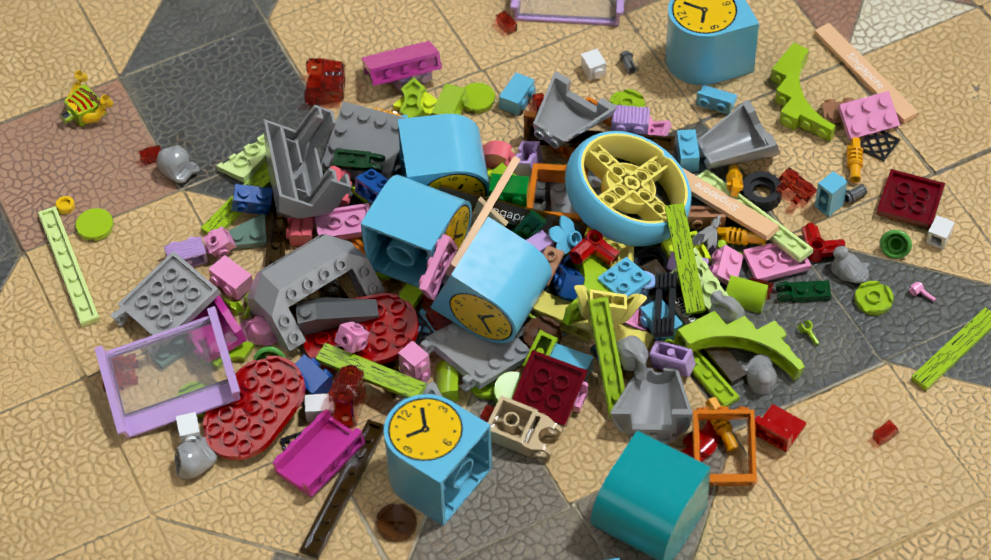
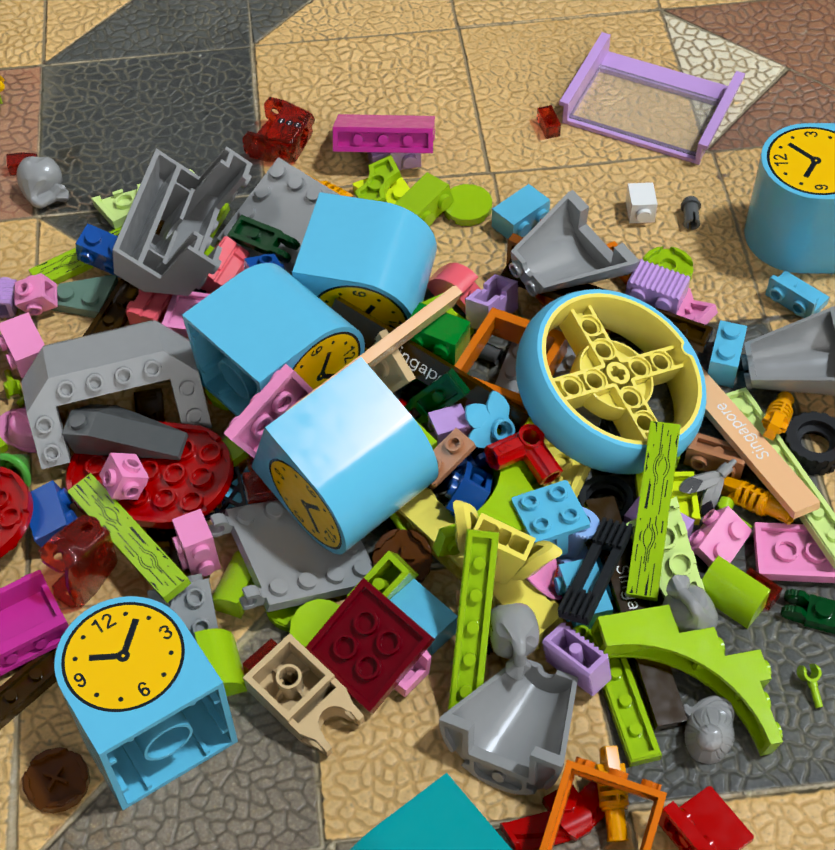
camera: 20 degrees right, 0 degrees up
(317, 404) = (29, 561): white brick -> none

